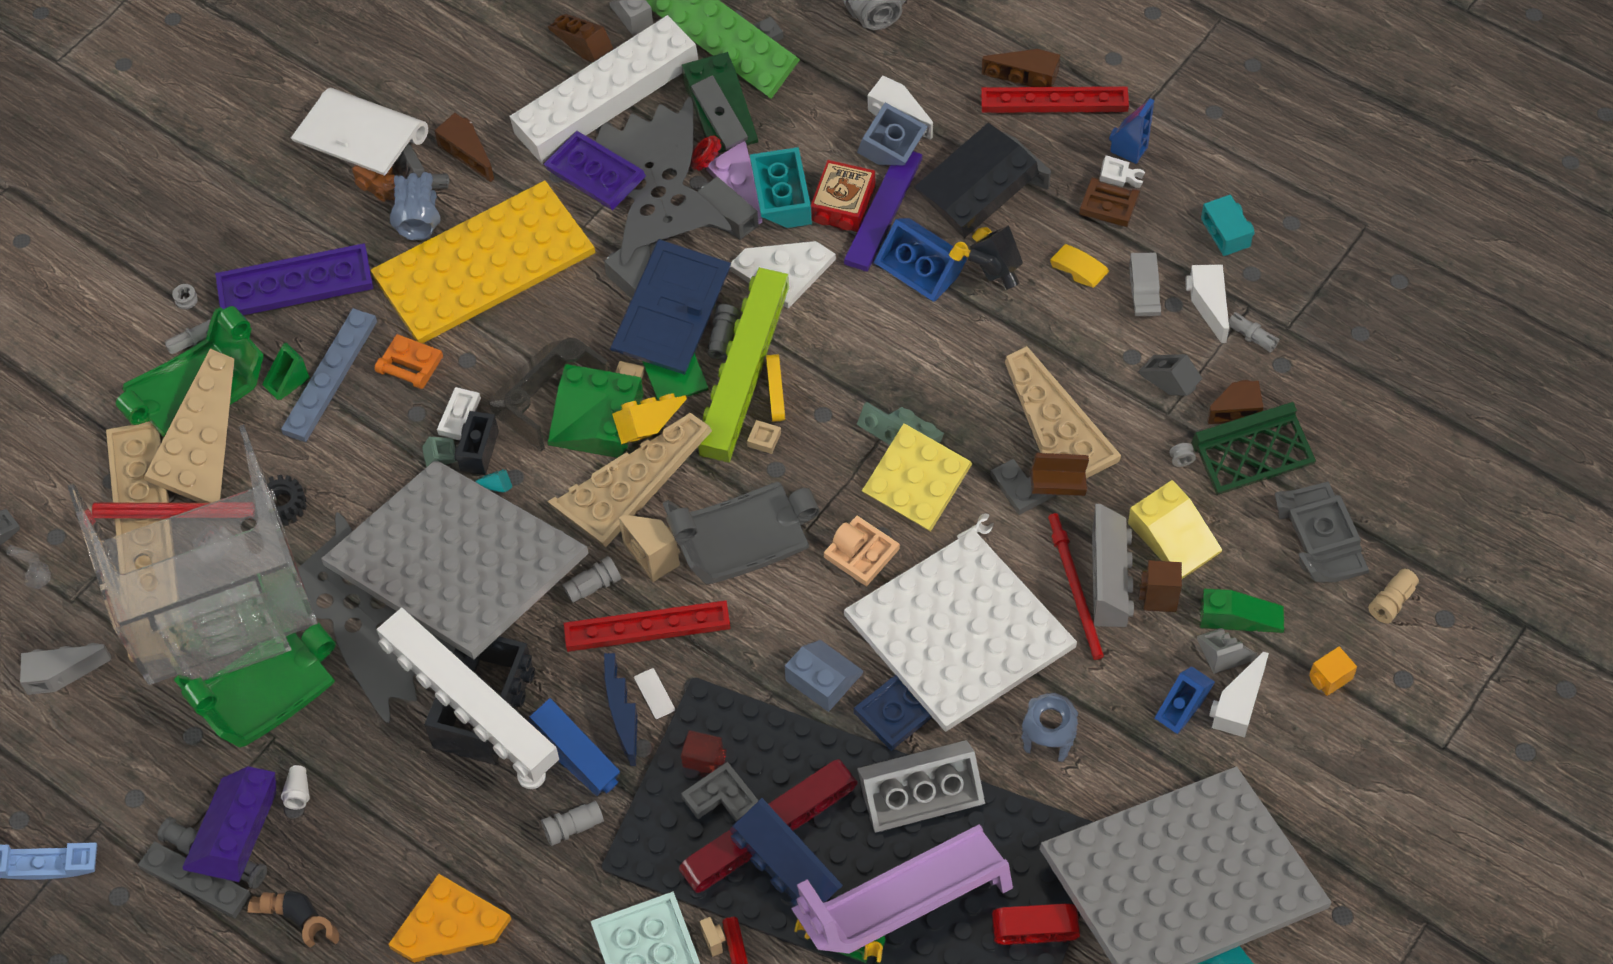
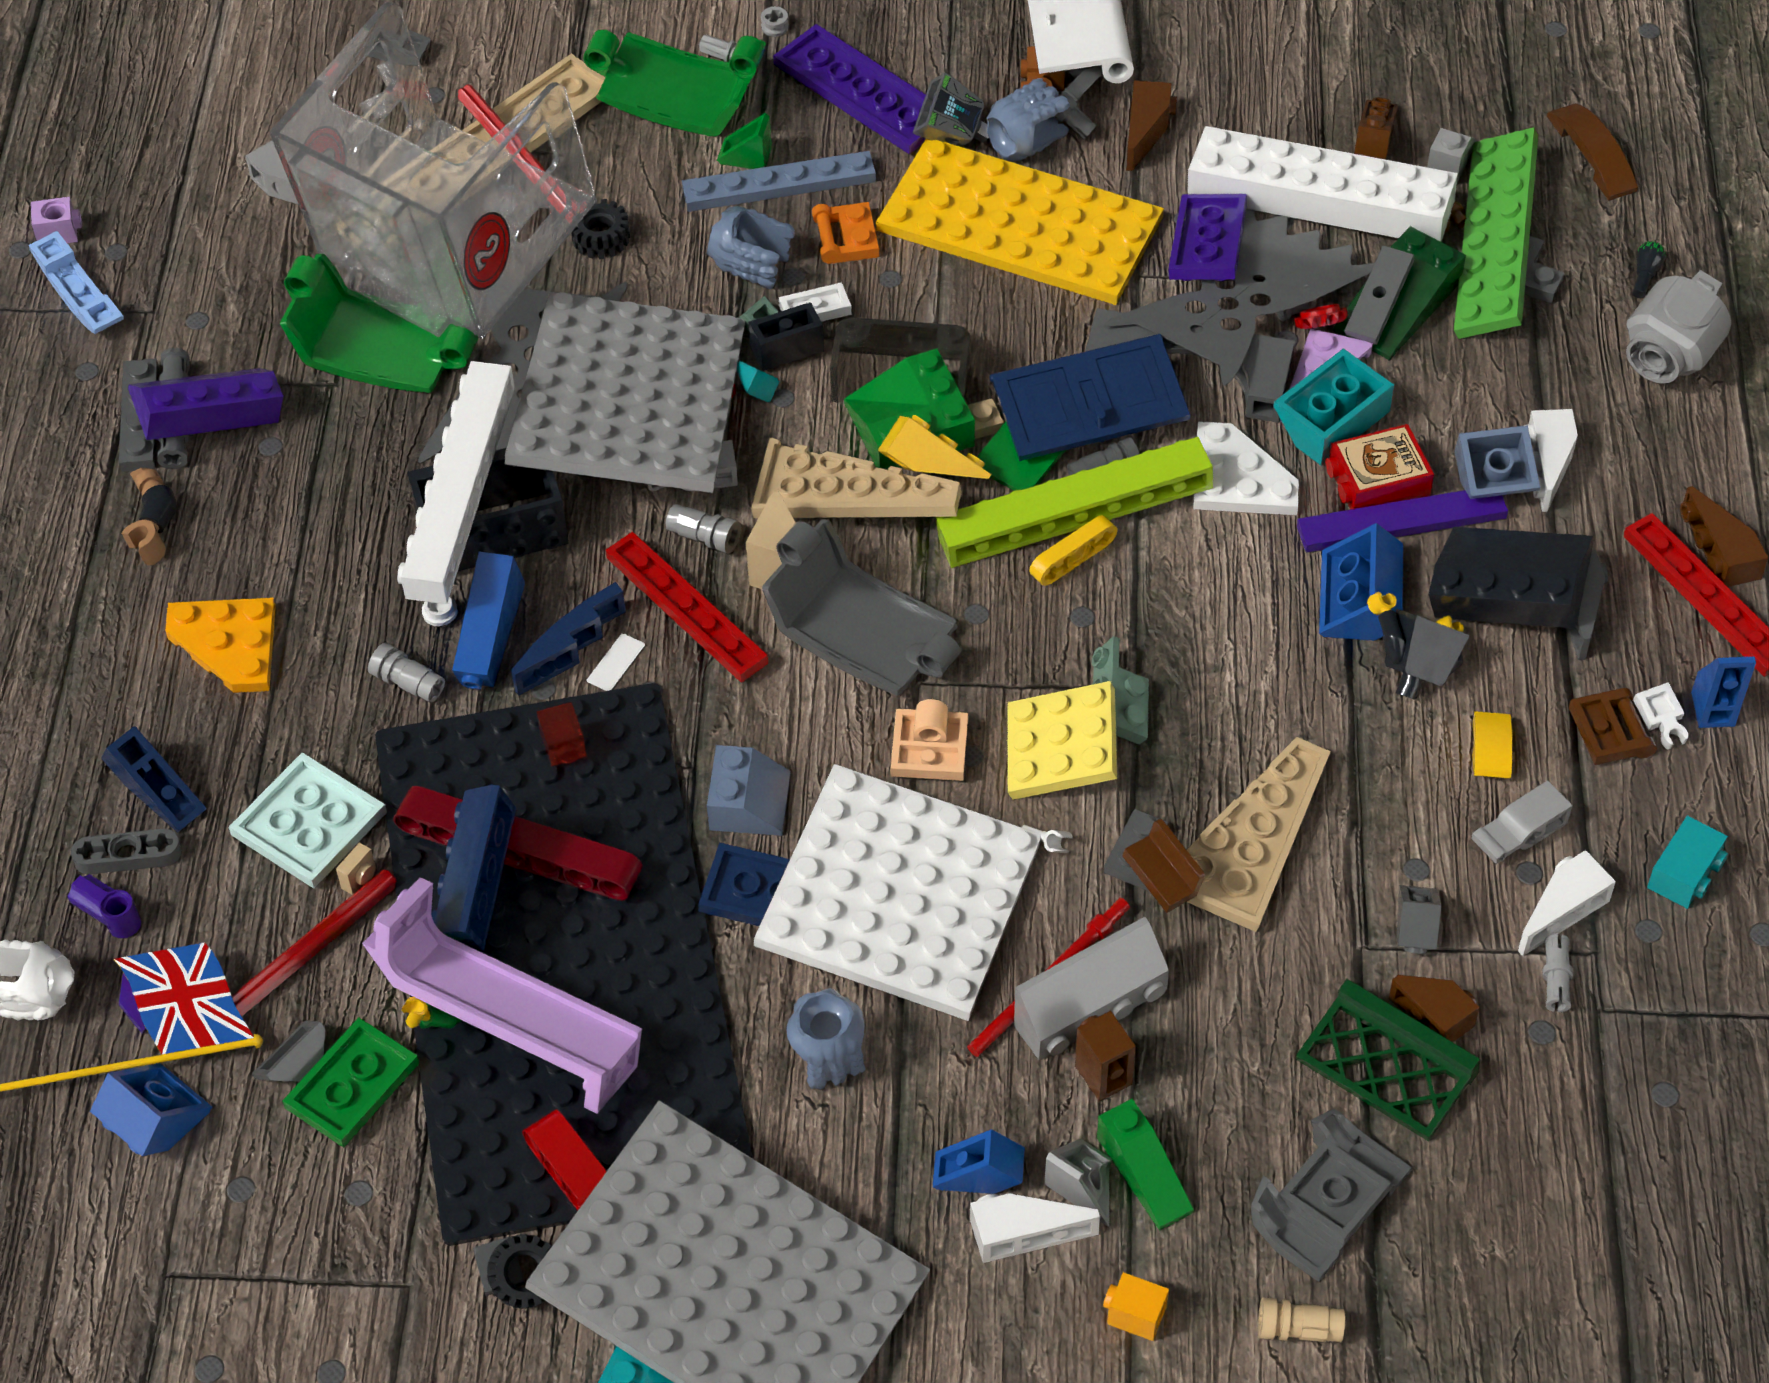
camera: 55 degrees right, 5 degrees down
(194, 445) = (628, 116): tan wing -> none
(296, 791) = (288, 430): white cone -> none
(366, 416) = (750, 245): none -> sand blue piece
(370, 243) = (951, 113): none -> dark grey torso
(720, 787) = (530, 775): dark grey plate -> none
(764, 437) = (1002, 575): tan plate -> none
(921, 785) = (665, 956): light grey slope -> none
(1174, 528) = (1202, 1034): light yellow slope -> none
(1182, 454) = (1315, 988): light grey bush -> none

